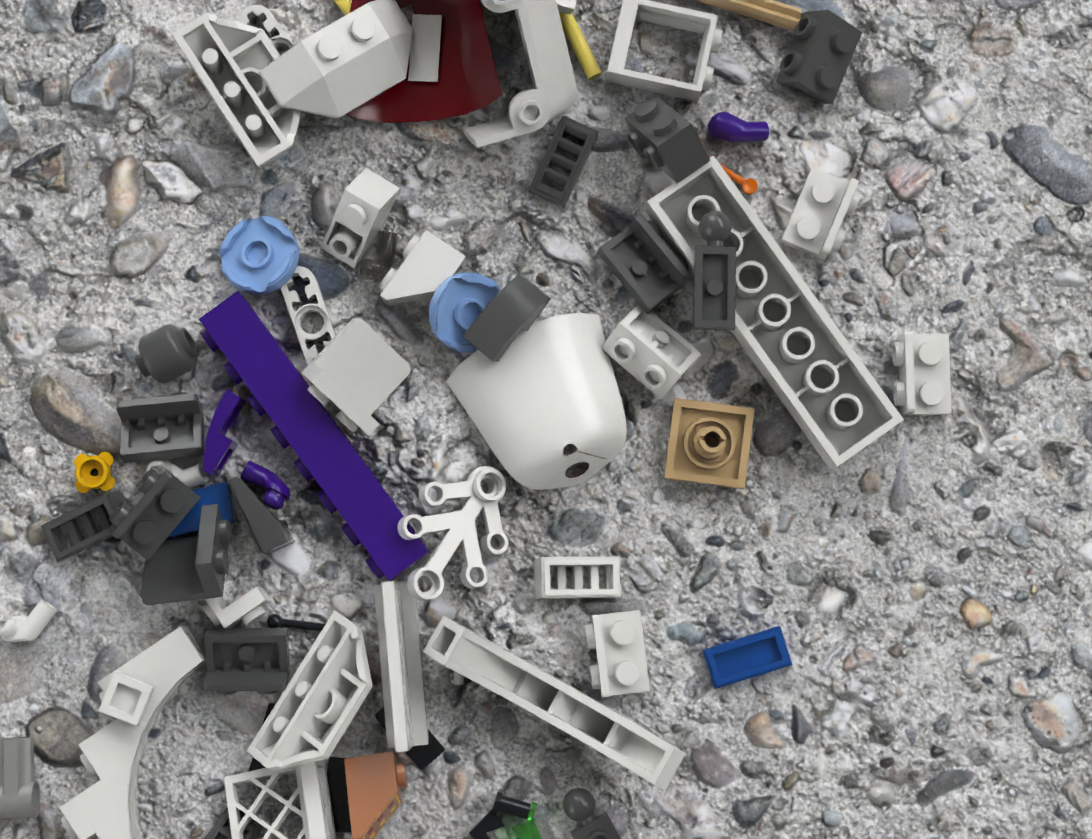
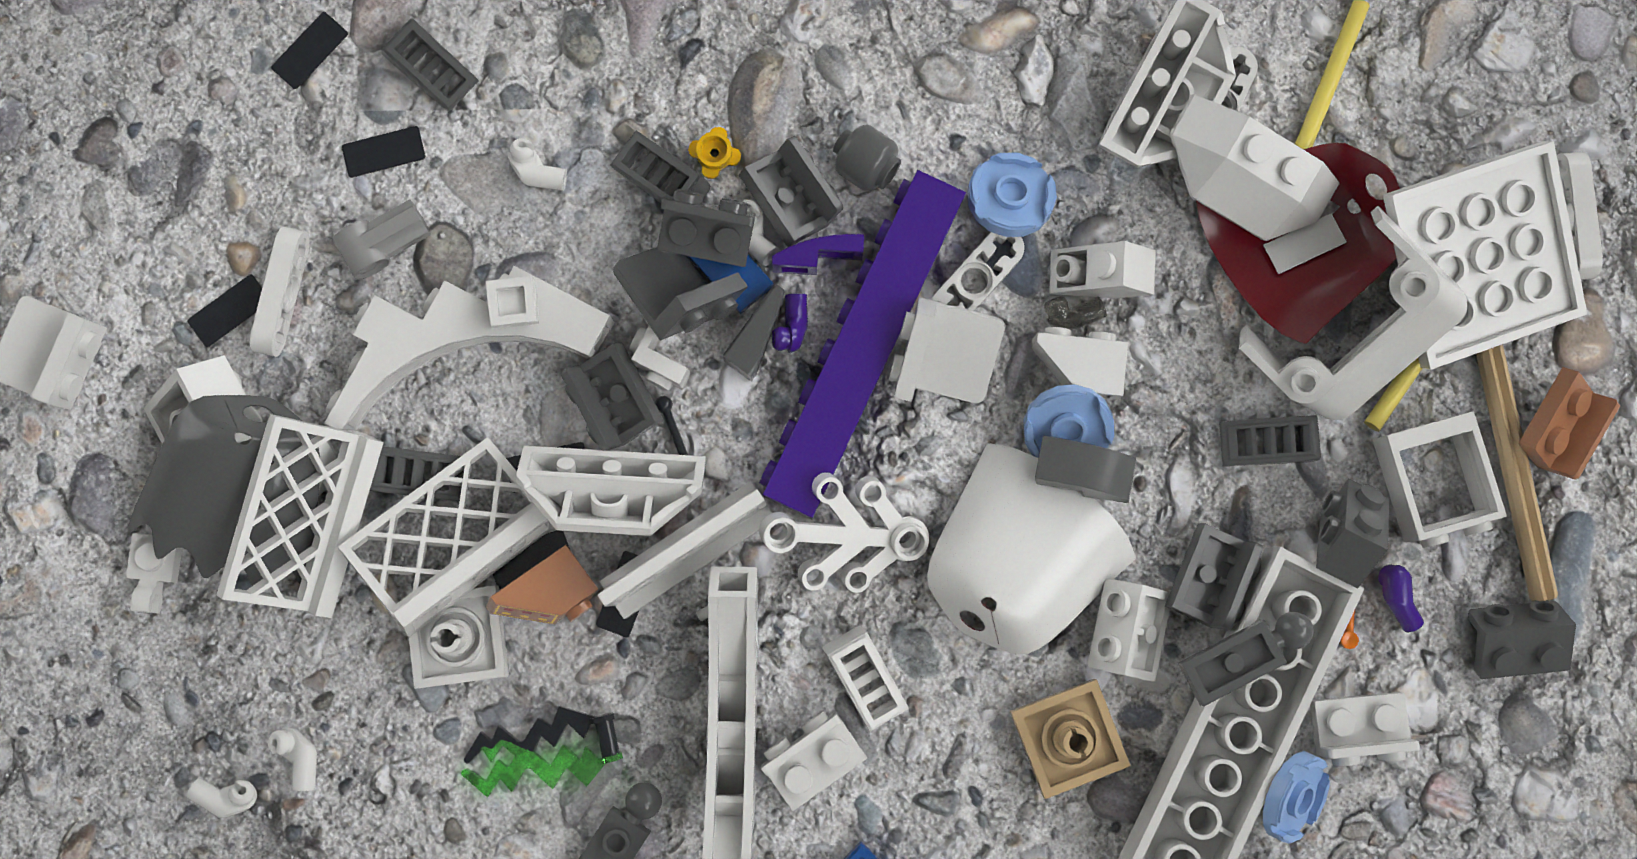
camera: 55 degrees right, 0 degrees up
(844, 295) = (1295, 797): none -> light blue tile

